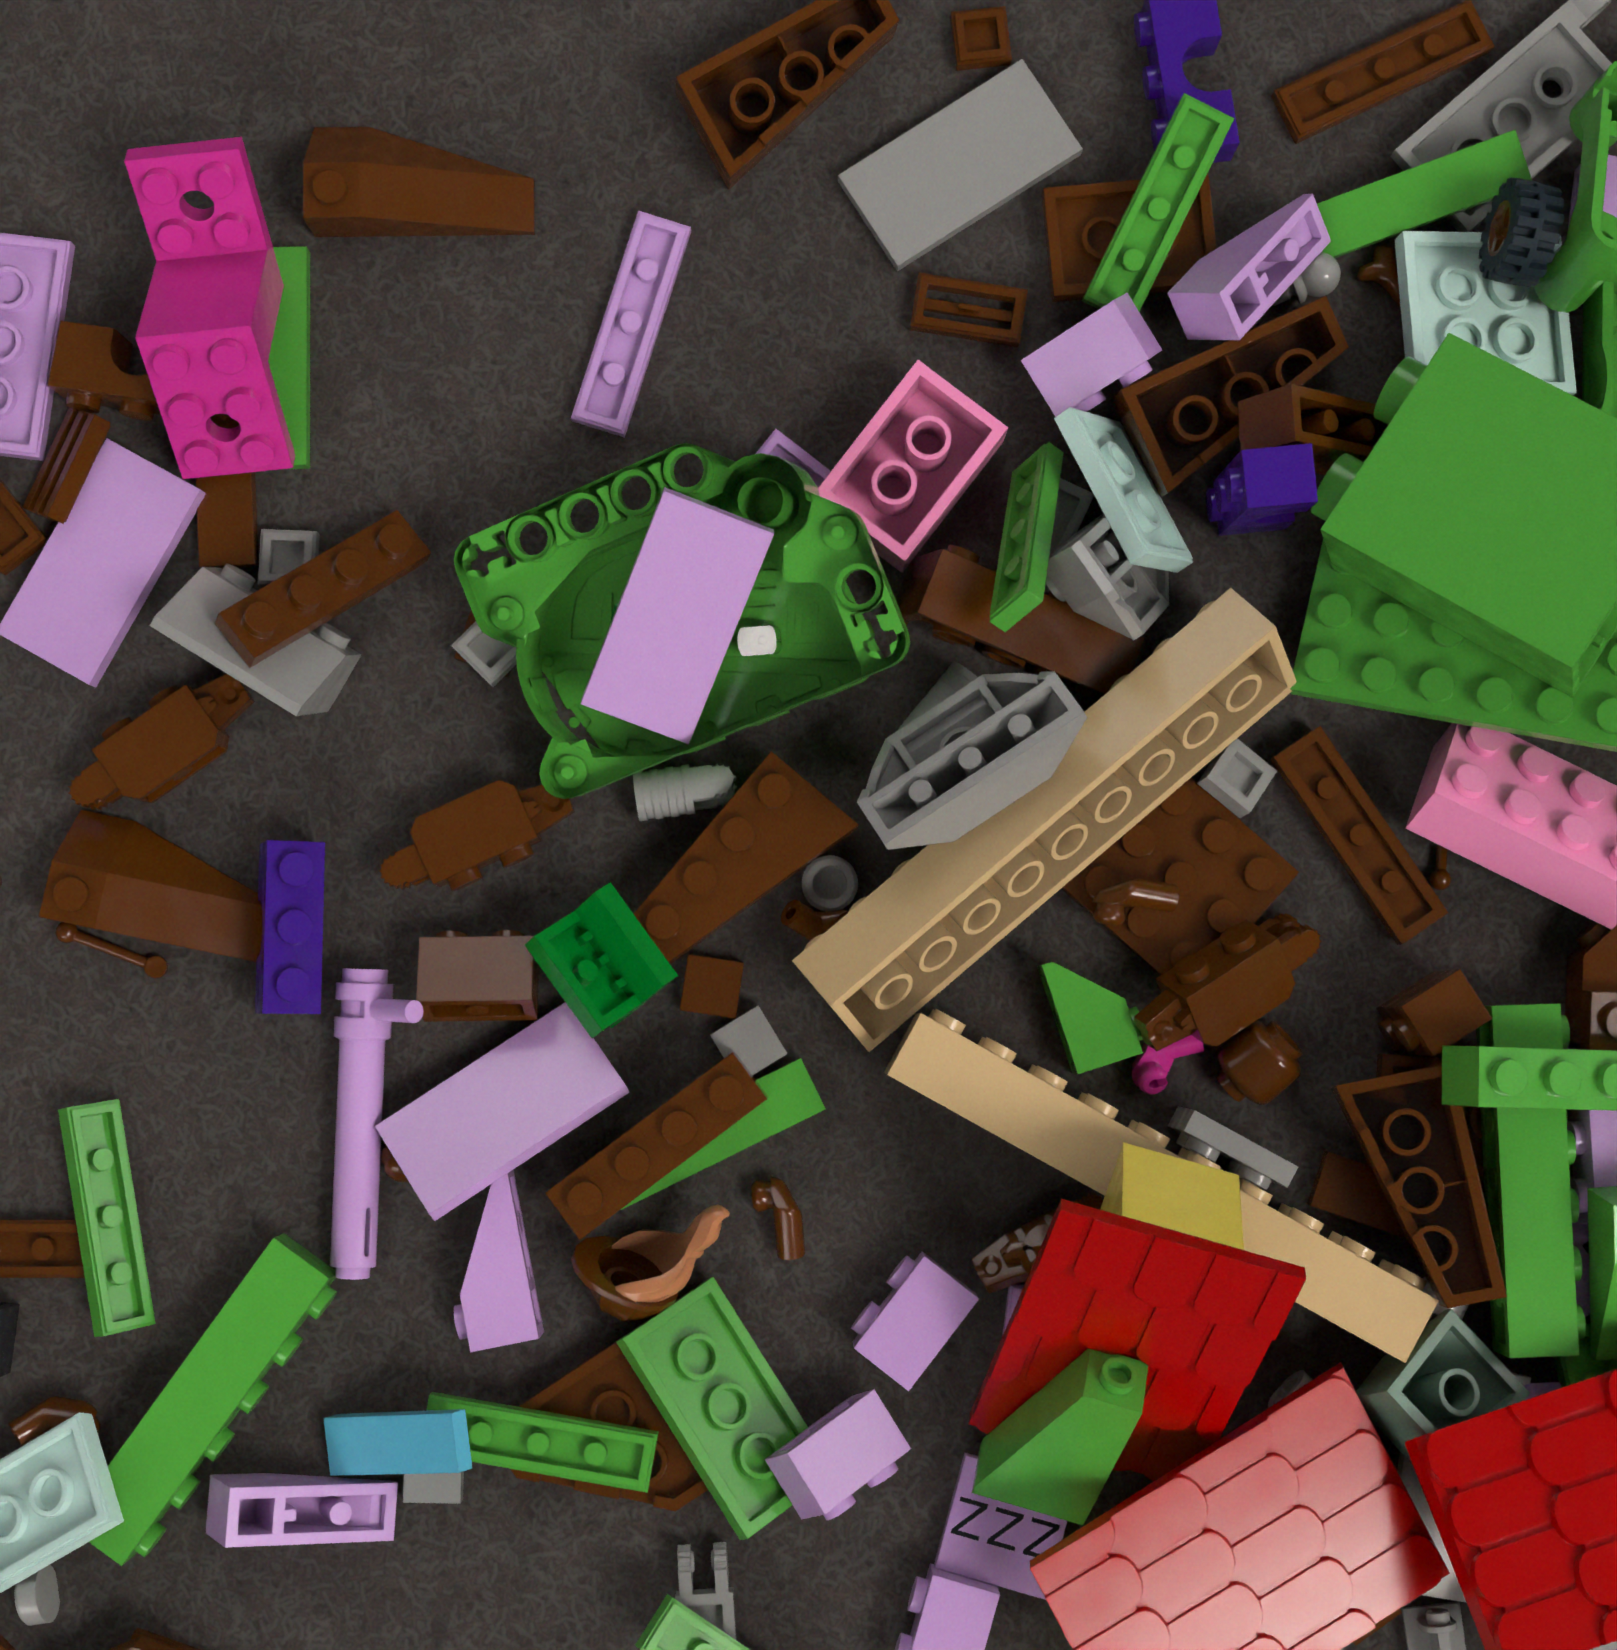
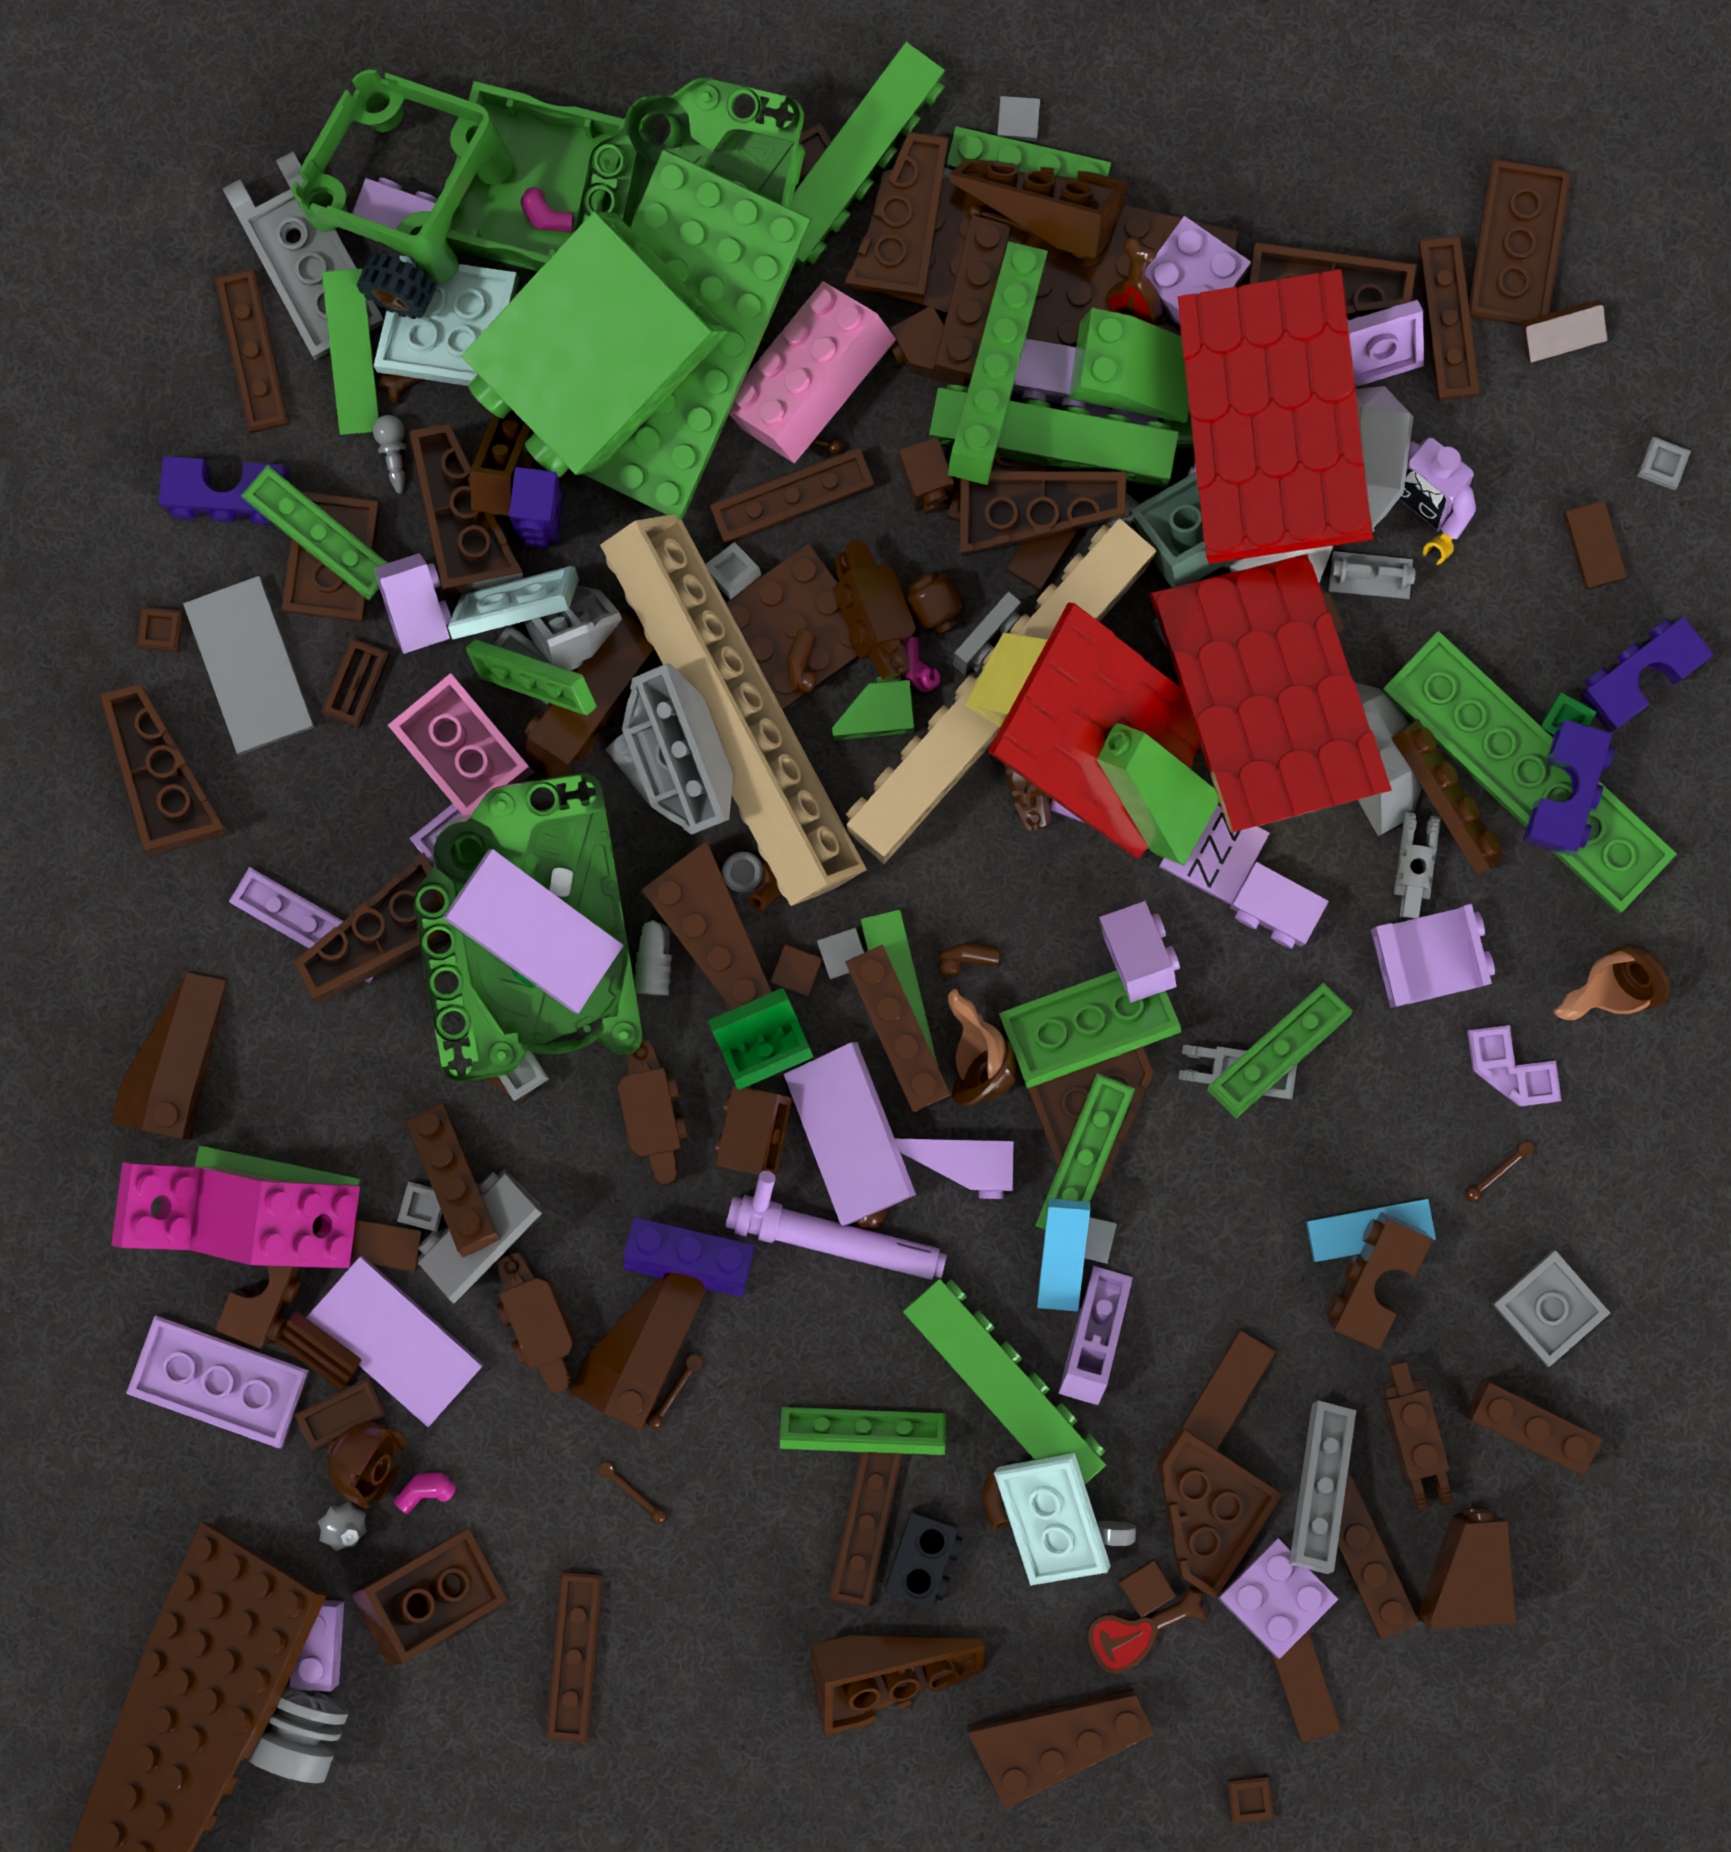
camera: 70 degrees left, 0 degrees up
(624, 402) = (372, 937): none -> reddish brown wedge
(913, 1319) = (1057, 880): lavender brick -> none
(1248, 274) = (379, 480): lavender slope -> none

